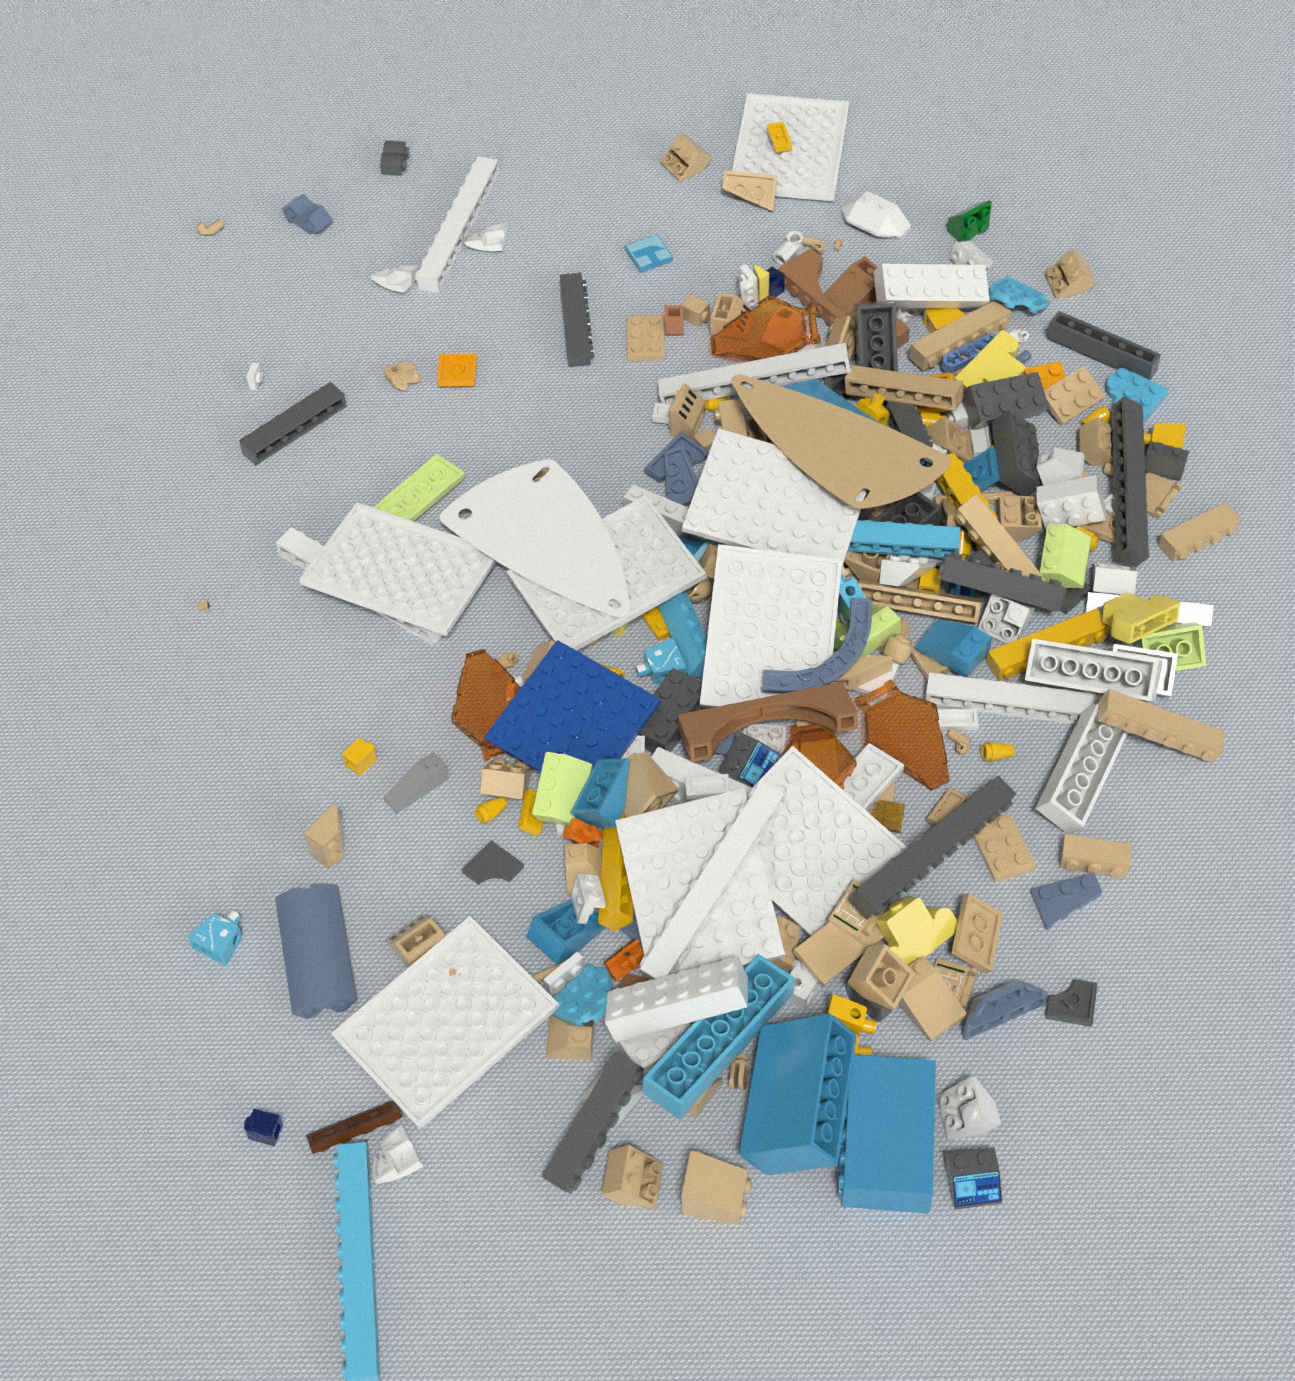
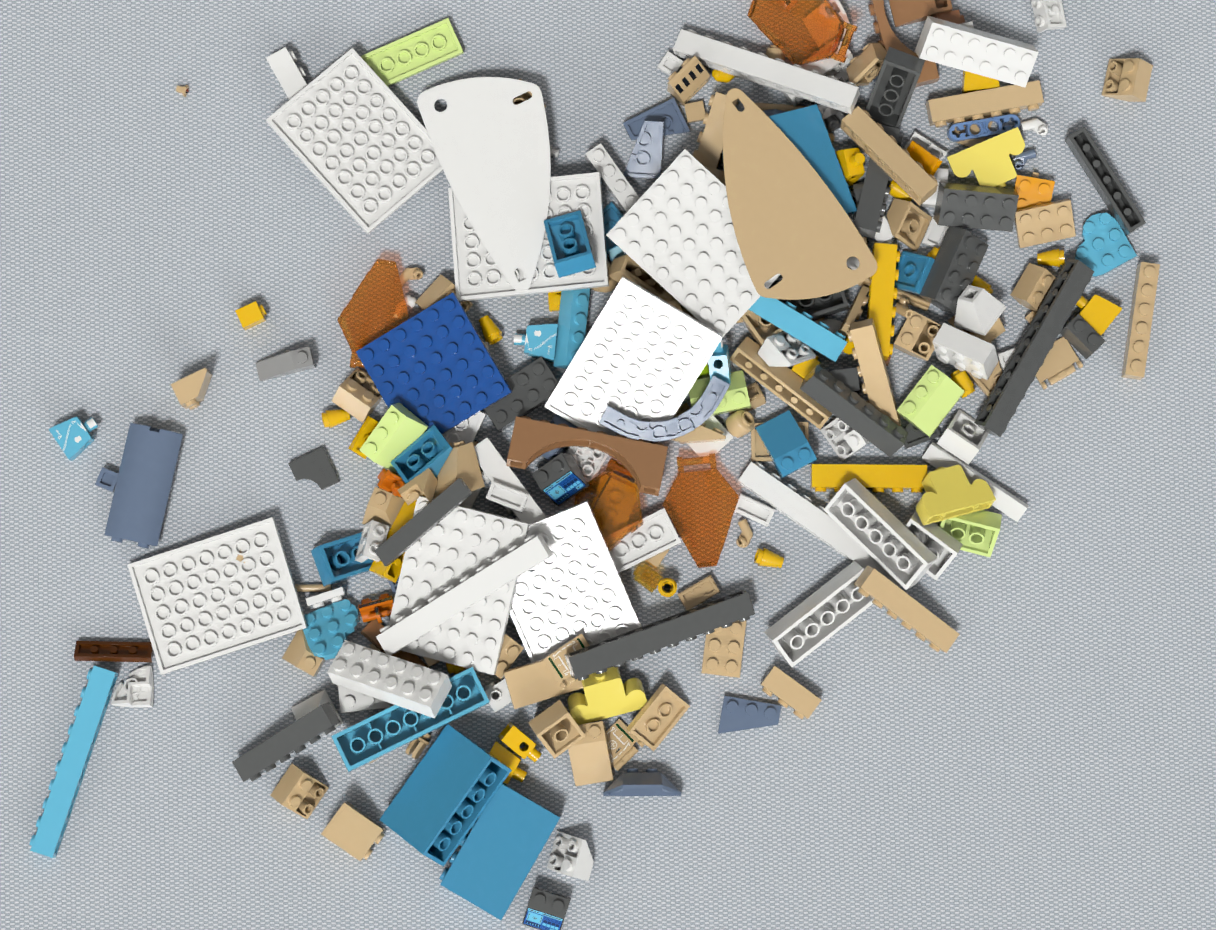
camera: 25 degrees right, 30 degrees up
(263, 1127) = (47, 619): clear blue brick -> none
(272, 963) = (107, 479): none -> sand blue plate
(415, 939) = (224, 513): tan slope -> none
(613, 809) = (421, 485): none -> tan slope
(634, 837) = (423, 522): none -> dark grey tile
(652, 555) = (569, 244): none -> dark azure slope
(914, 812) = (667, 581): none -> yellow cone
(993, 498) = (903, 309): none -> tan arm
(1016, 293) = (1063, 81): medium azure plate -> none
(1075, 1005) = (702, 808): dark grey tile -> none
(1199, 532) = (1066, 424): tan brick -> none
(1208, 431) = (1140, 320): none -> tan brick

